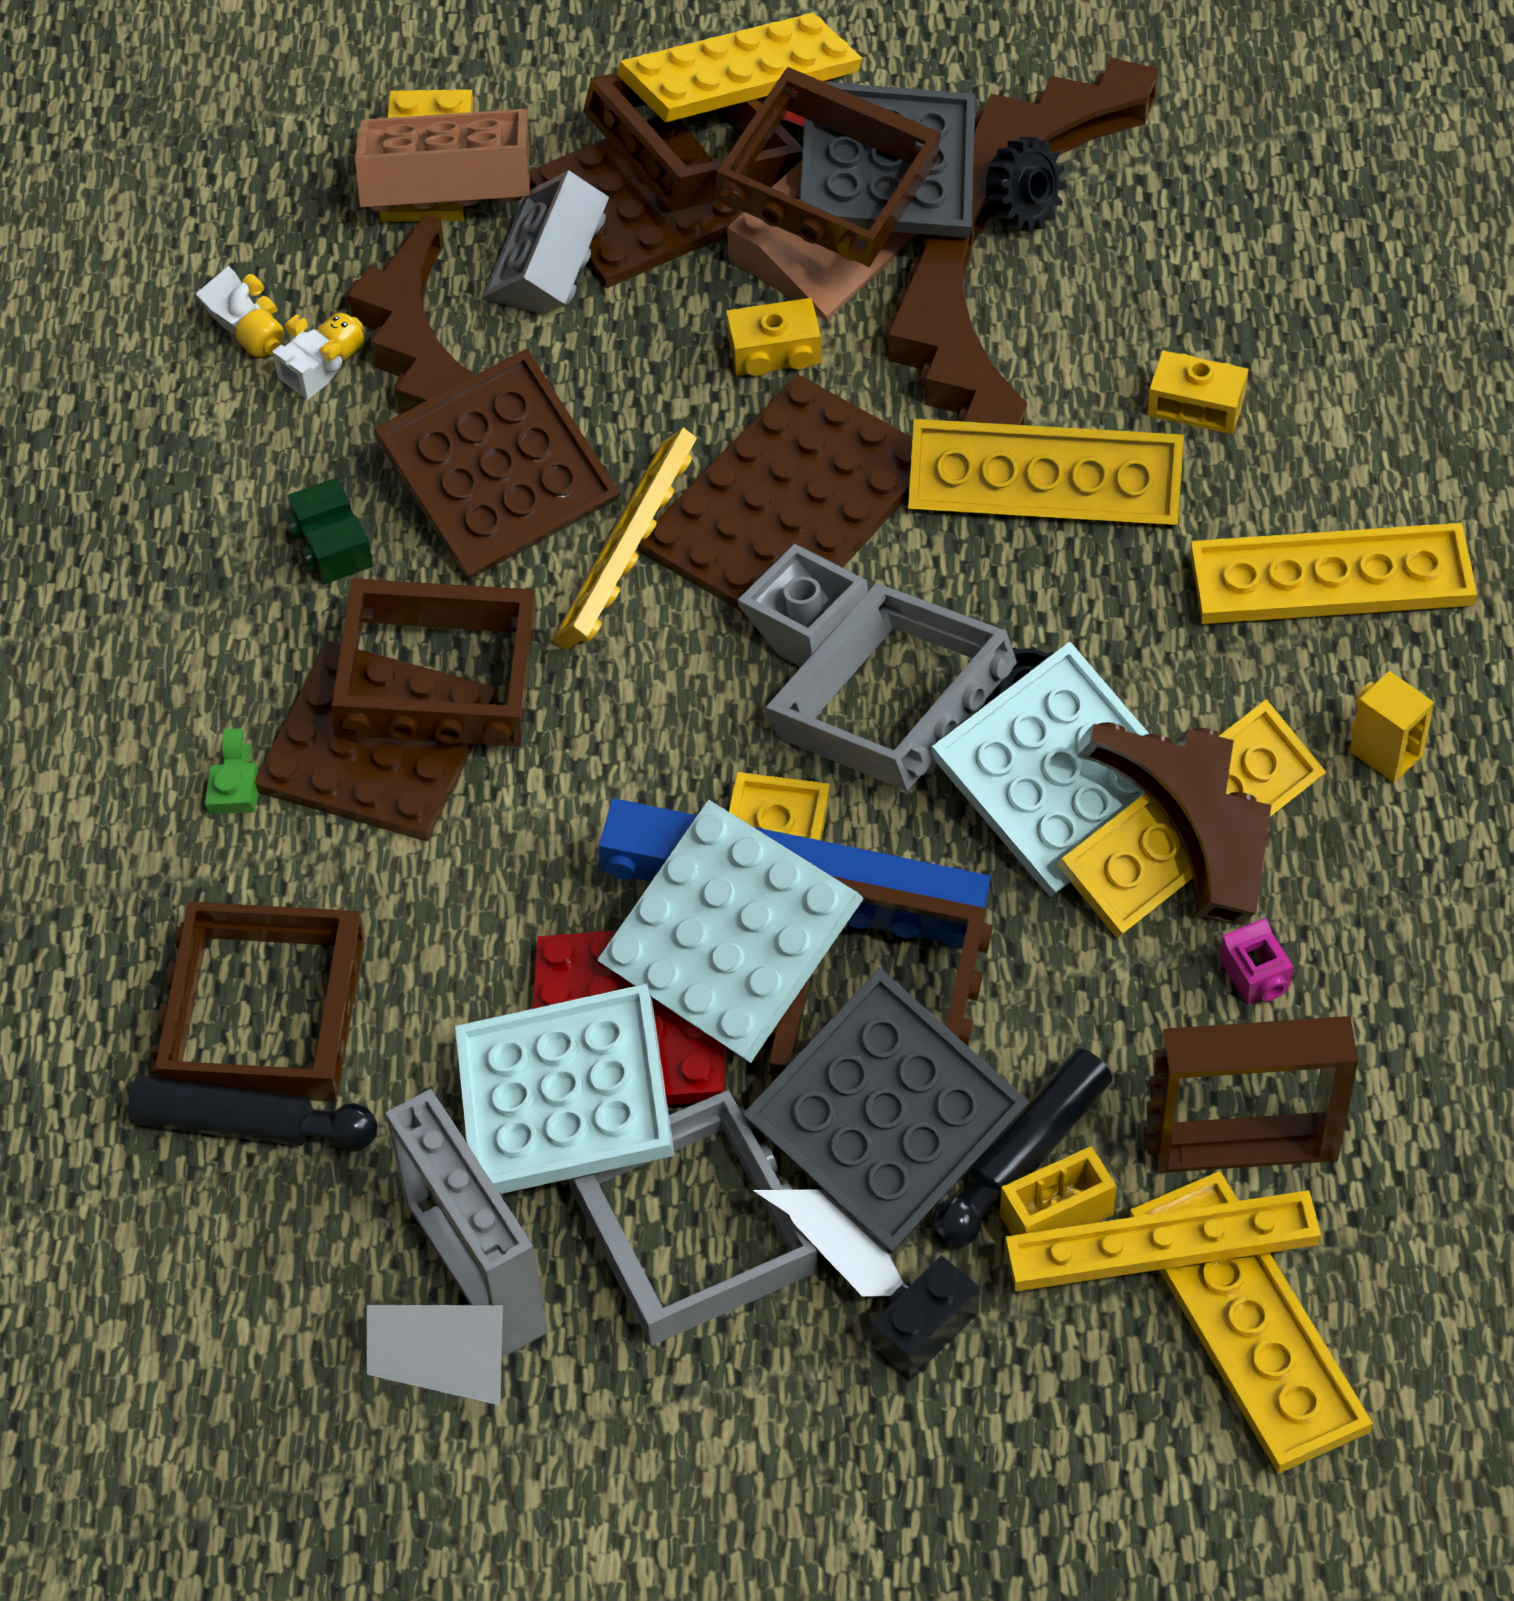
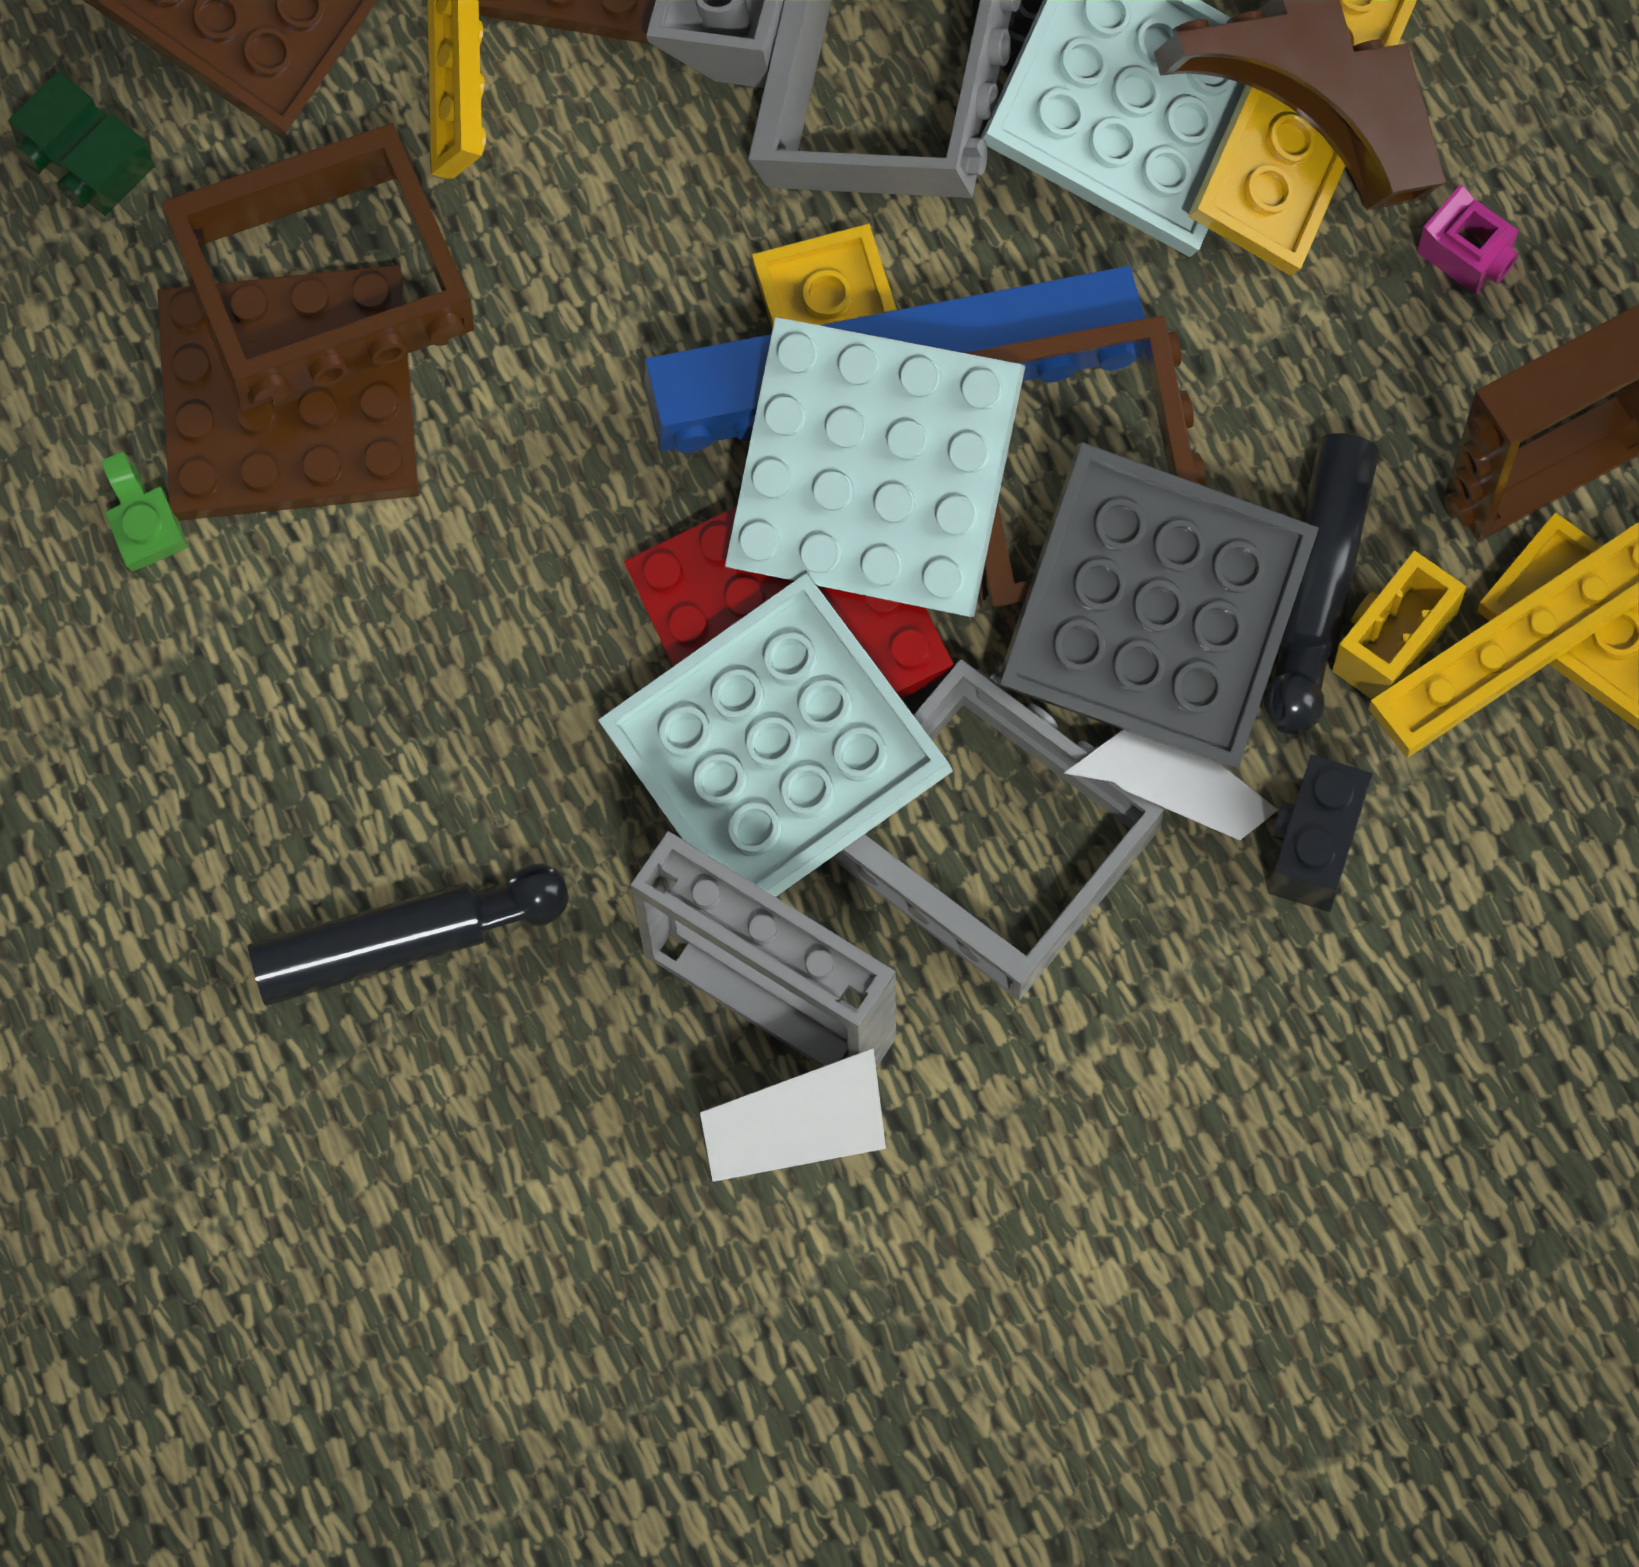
camera: 25 degrees left, 15 degrees up
(264, 924) = (295, 686): reddish brown window -> none

